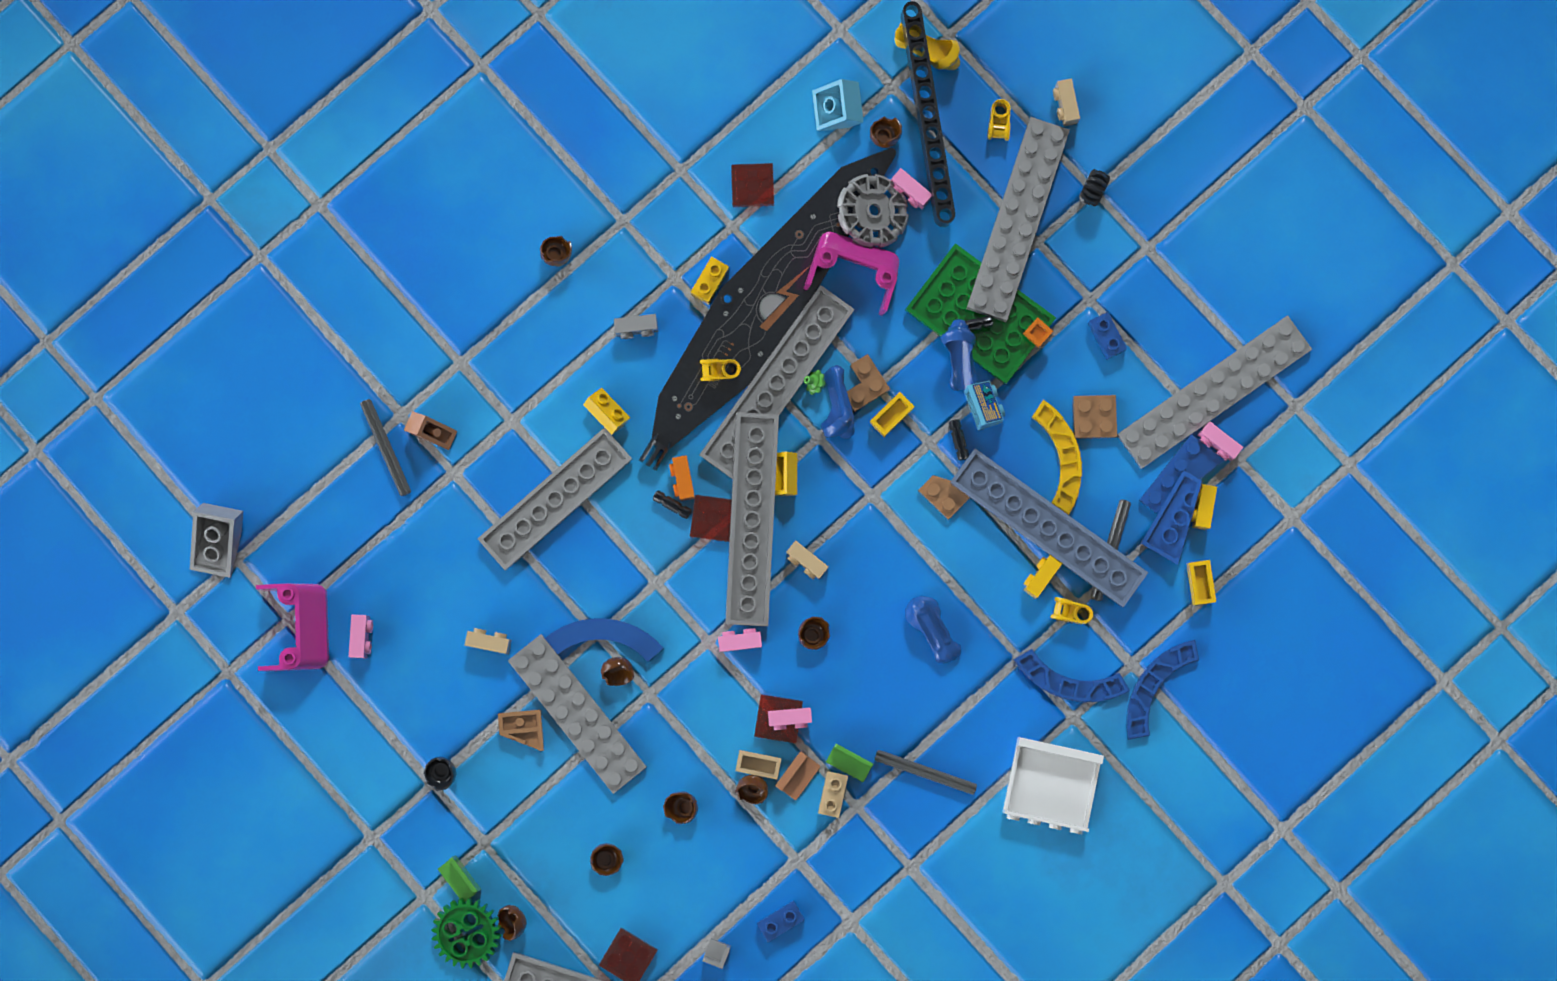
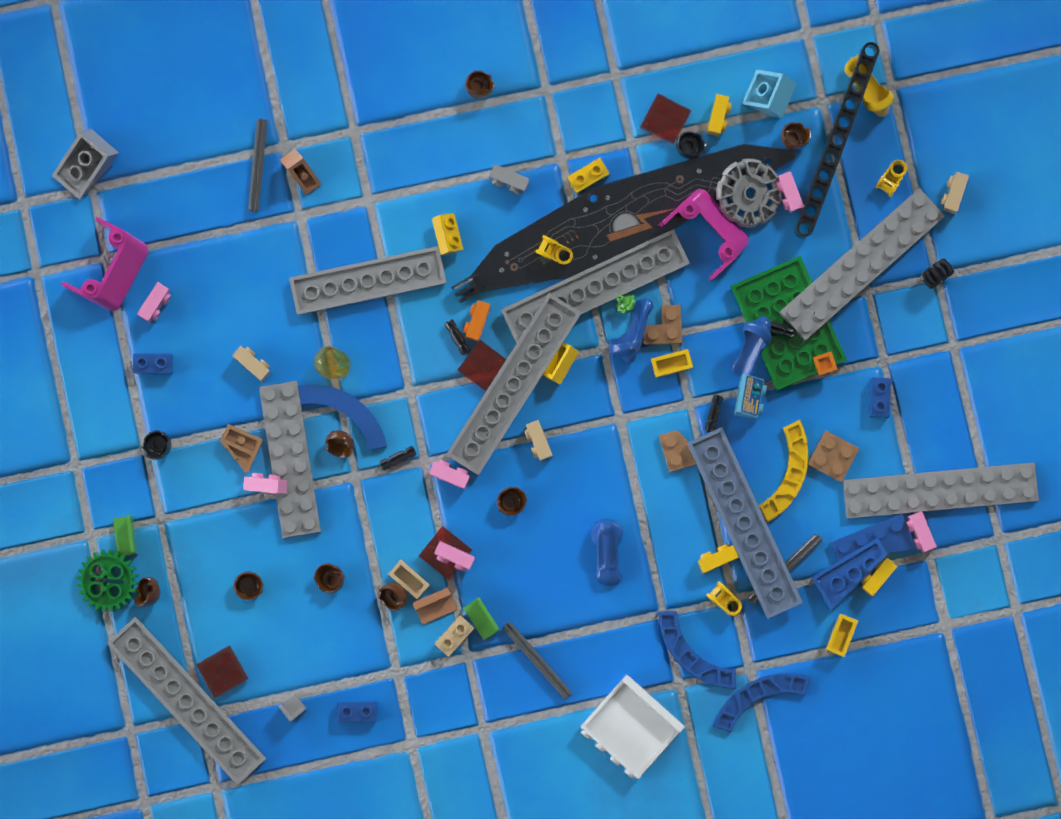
camera: 30 degrees right, 0 degrees up
(391, 696) = (152, 363): none -> blue piece
(561, 754) = (271, 485): none -> bright pink piece
(565, 597) = (332, 363): none -> clear yellow hat
(681, 653) = (398, 458): none -> black axle
(791, 196) = (690, 145): none -> black hair
(799, 147) = (717, 122): none -> yellow piece

